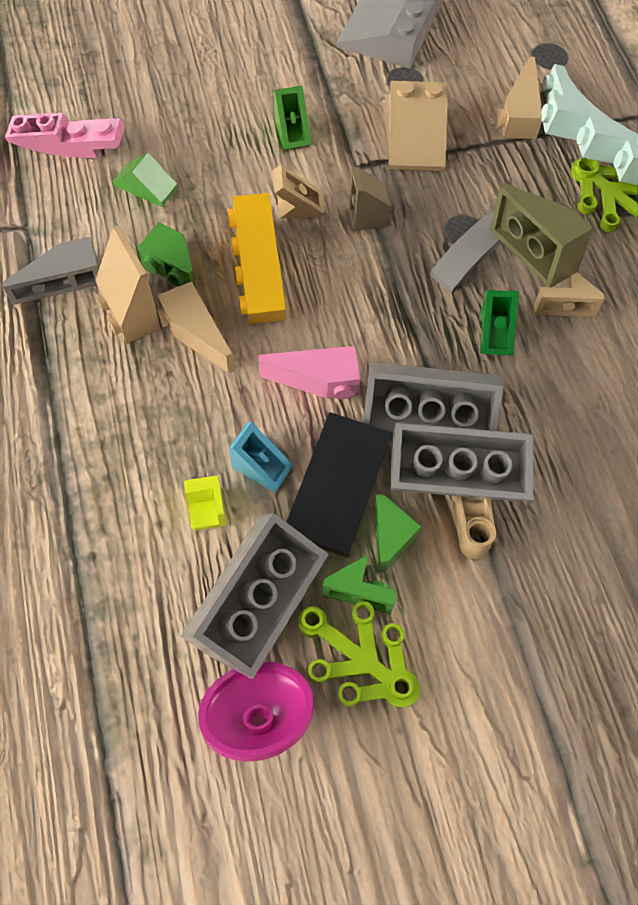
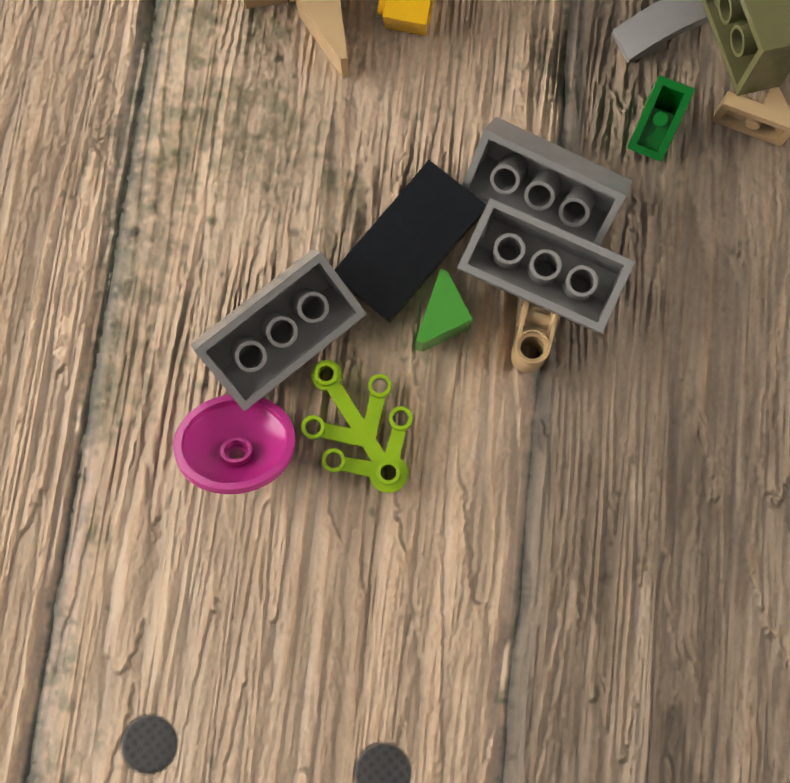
camera: 25 degrees right, 15 degrees up
(205, 503) = (264, 215): neon yellow panel -> none
(259, 458) = (335, 185): medium azure slope -> none
(317, 371) = (439, 110): bright pink slope -> none
(348, 587) = (377, 353): bright green slope -> none

